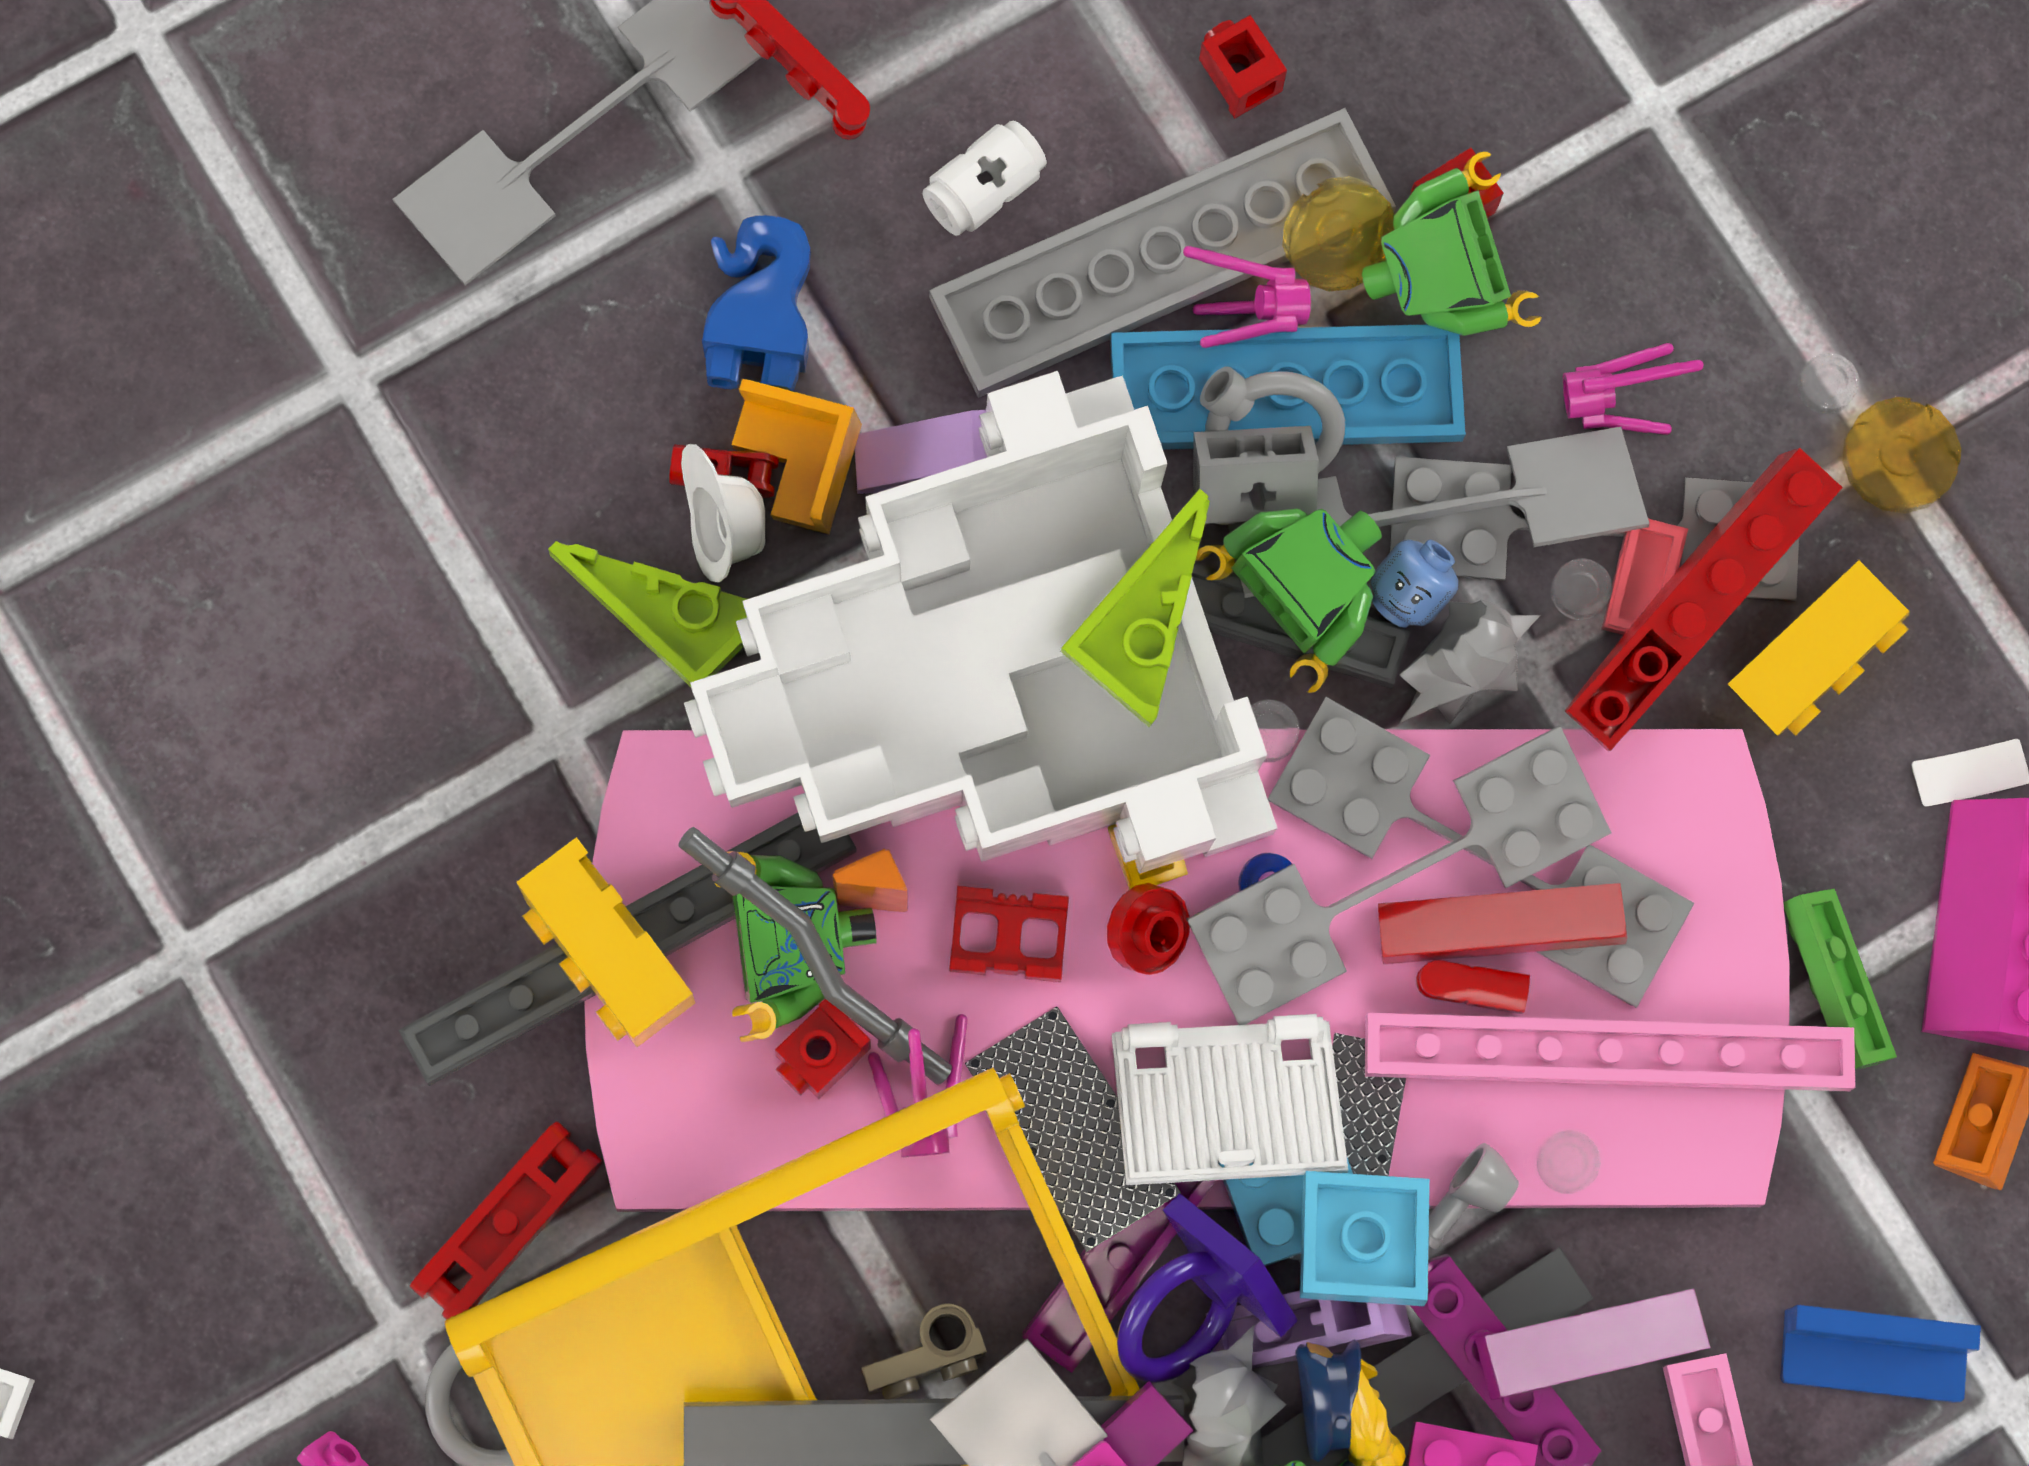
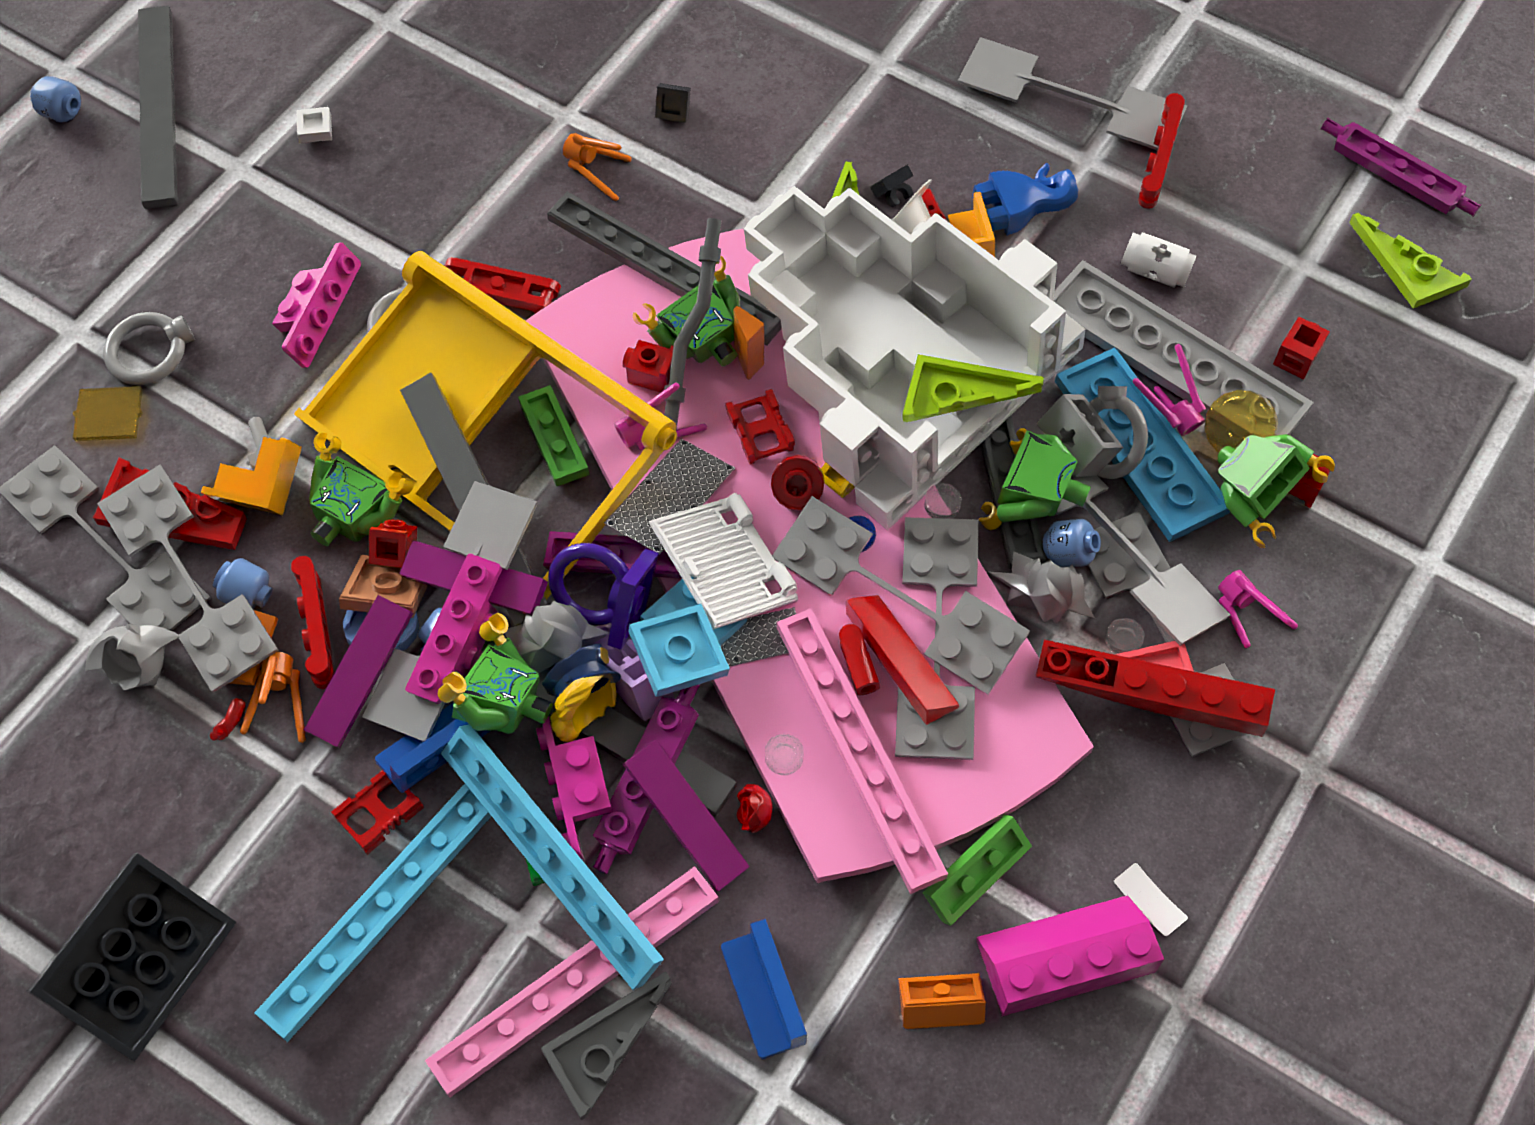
camera: 70 degrees right, 15 degrees down
(272, 767) = (672, 102): none -> black tile
(293, 962) = (584, 149): none -> orange plant
(603, 945) = (652, 238): yellow wedge -> none
(627, 497) = (893, 183): none -> black tile
(846, 1256) = (553, 435): none -> bright green plate
(899, 1374) = (532, 483): dark tan plate -> none
(1480, 1181) = (746, 708): light grey bar -> none
(1614, 1242) = (755, 808): none -> red plate
(1821, 650) = (1171, 771): yellow wedge -> none
(1828, 383) = (1332, 718): clear tile -> none
(1901, 455) = (1317, 777): clear yellow tile -> none

